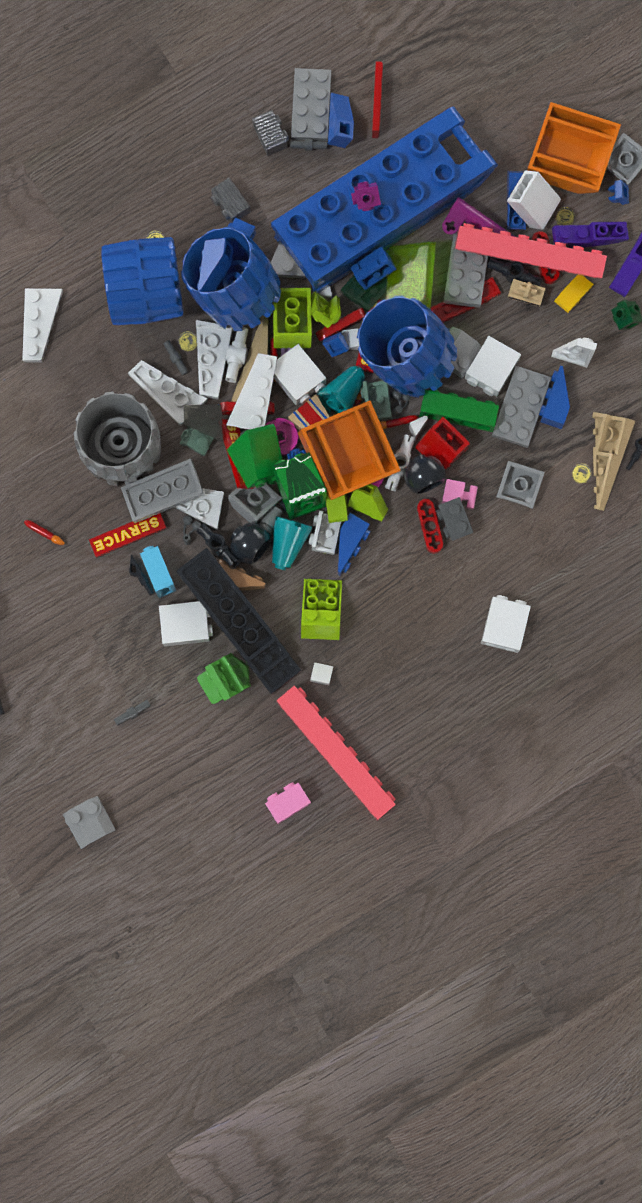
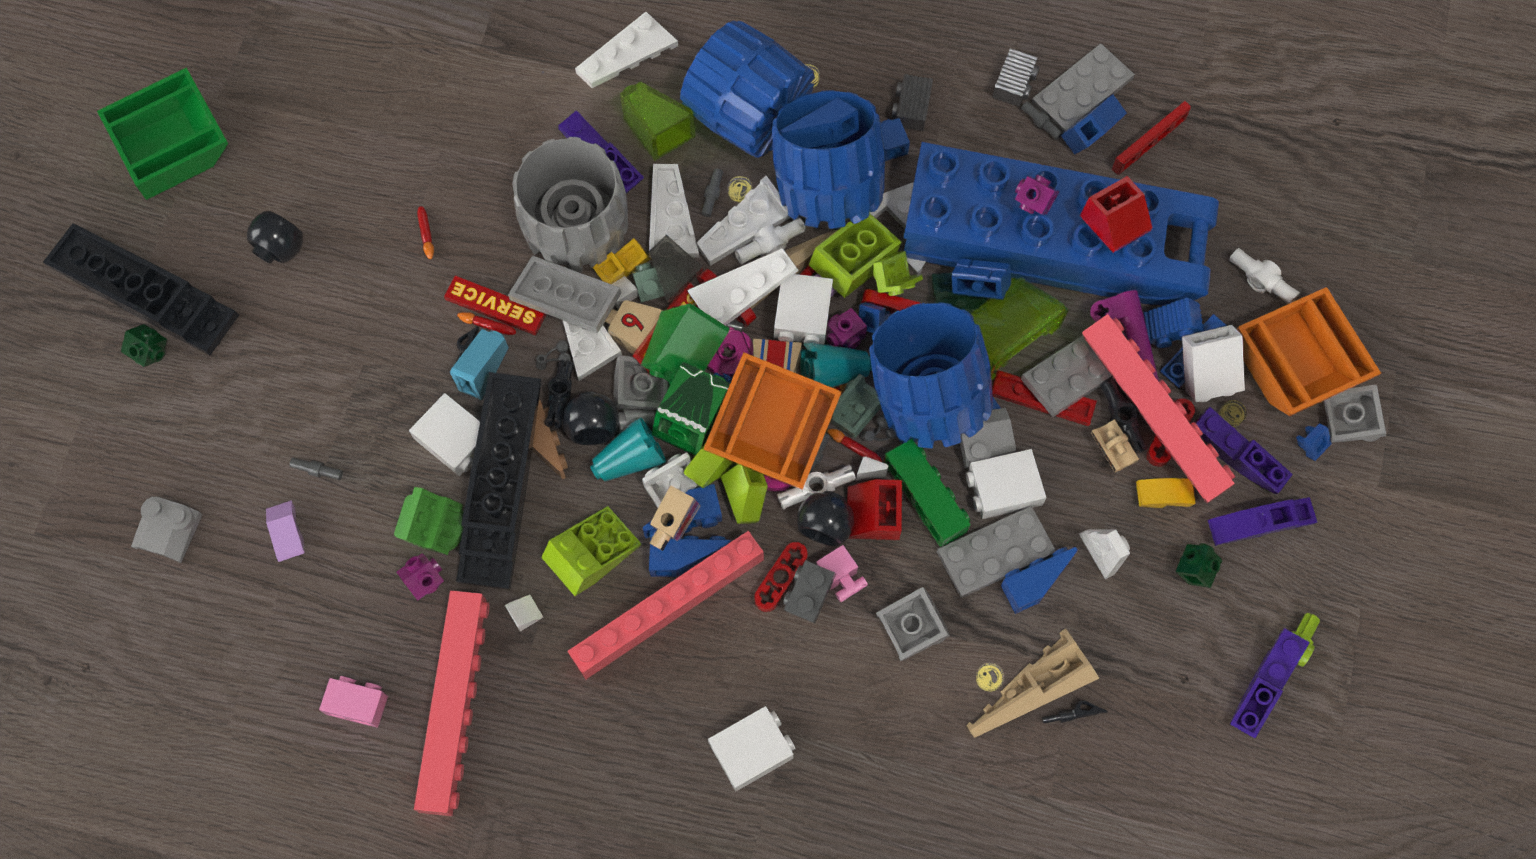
camera: 45 degrees right, 10 degrees down
(80, 394) = (578, 127): none -> dark purple slope
(103, 346) = (656, 119): none -> clear neon green slope
(134, 548) = (470, 318): none -> red piece
(154, 759) = (284, 531): none -> lavender slope
(170, 444) = (622, 262): none -> yellow slope
(184, 455) = (628, 290): none -> white slope
(216, 471) = (632, 324): none -> tan torso
(251, 709) = (421, 575): none -> magenta brick
(330, 364) = (846, 330): none -> magenta brick
(351, 541) = (674, 506): none -> tan torso
(368, 569) = (682, 555): none -> blue slope
(390, 597) = (666, 605): none -> coral brick
(418, 166) = (1118, 214): none -> red slope
(492, 196) = (1173, 322): none -> blue brick
(510, 124) = (1264, 276): none -> white pin

